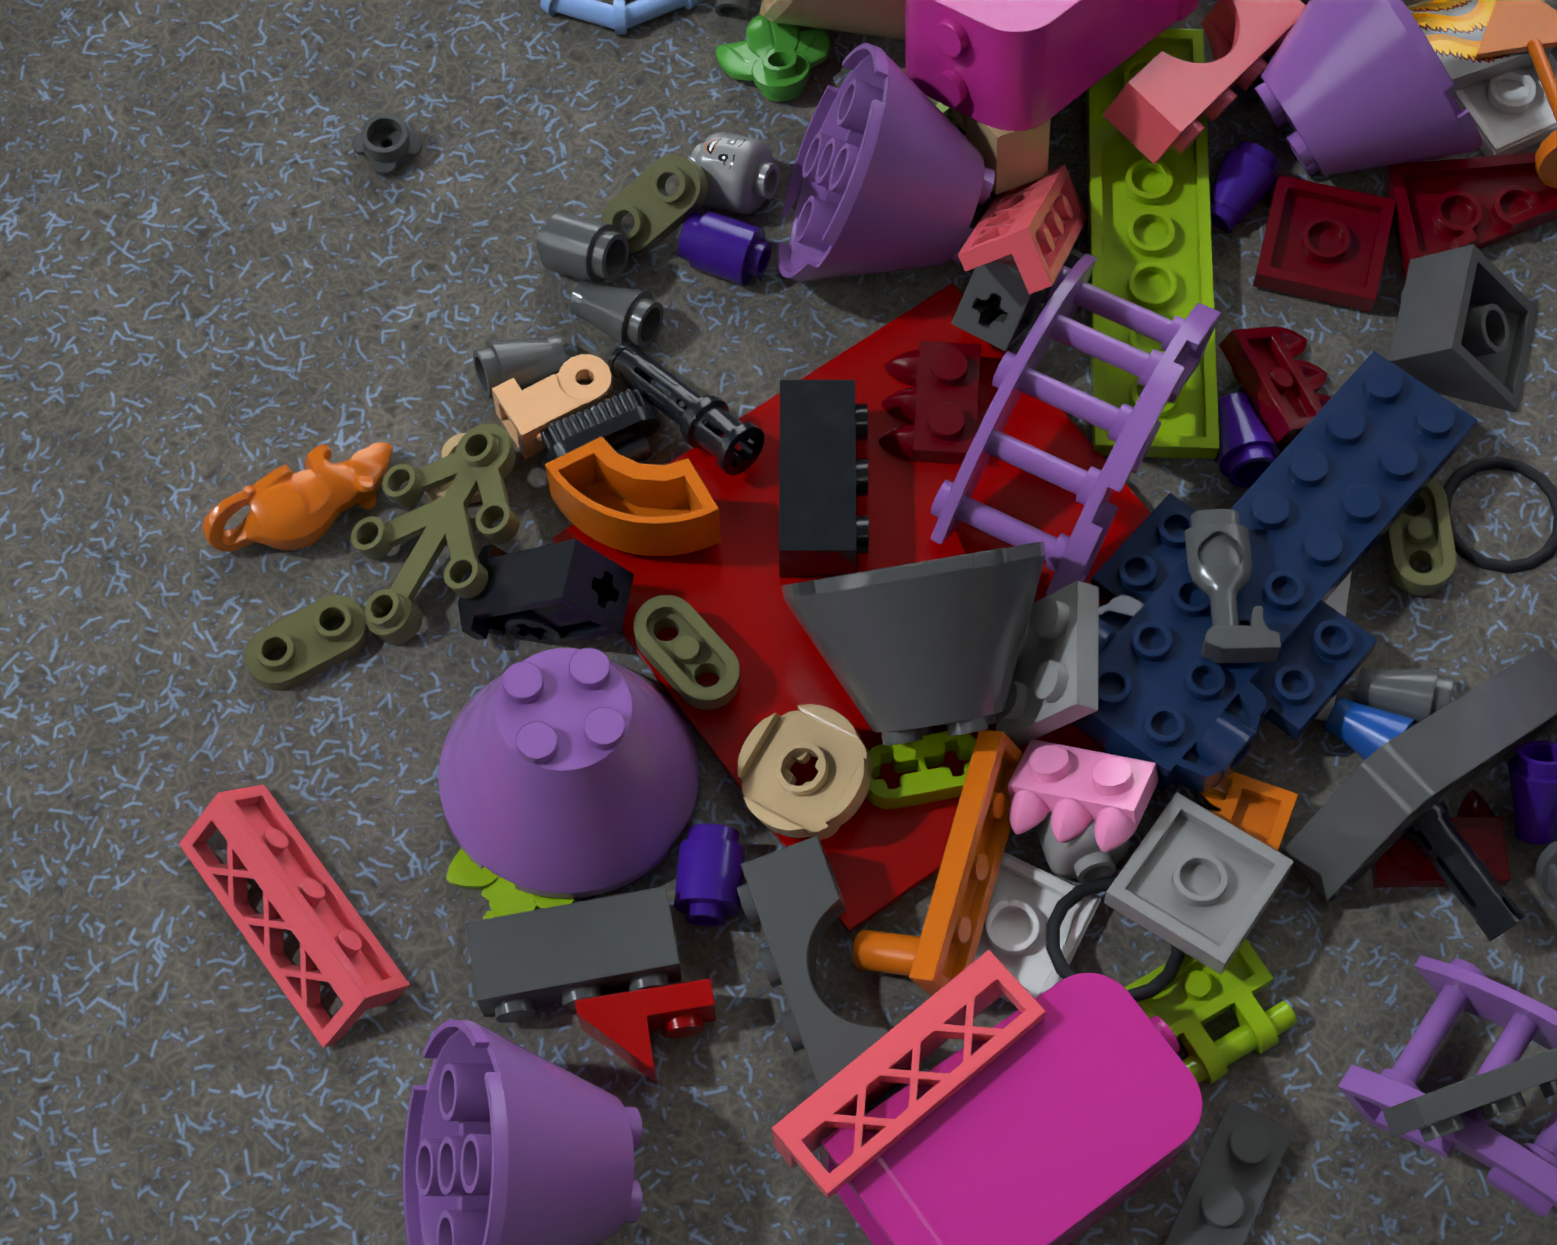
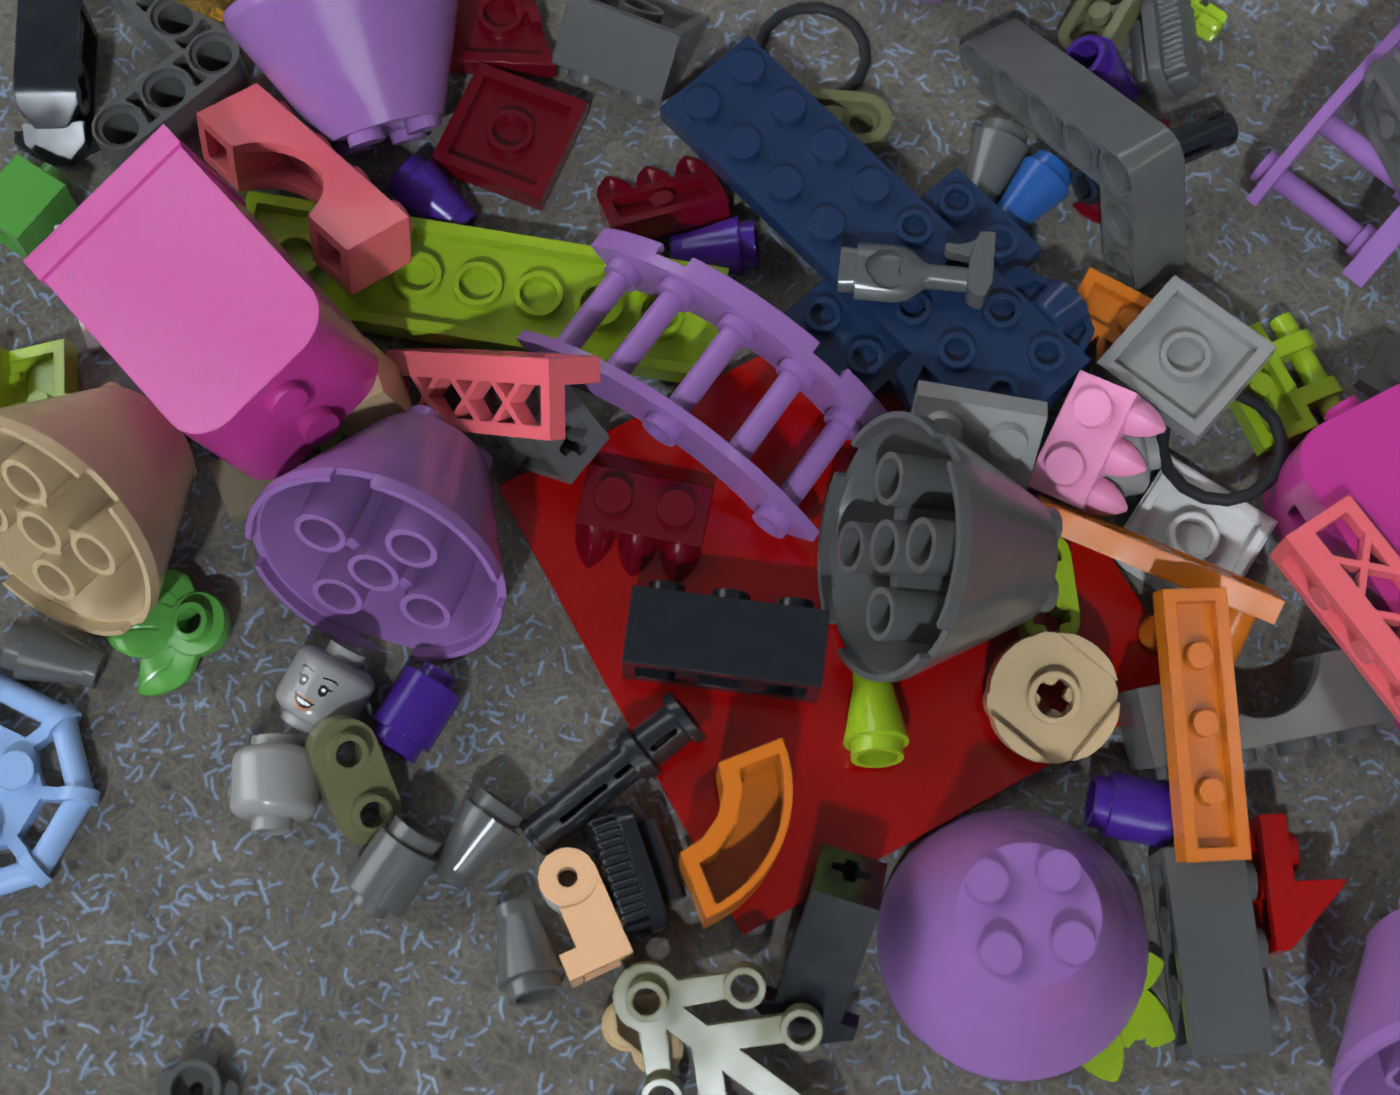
camera: 90 degrees left, 5 degrees up
(640, 140) = (273, 784): none -> light grey head
(688, 655) = (902, 801): olive plate -> none
(756, 619) = (874, 725): none -> lime cone
(786, 895) = (1200, 723): none -> orange piece

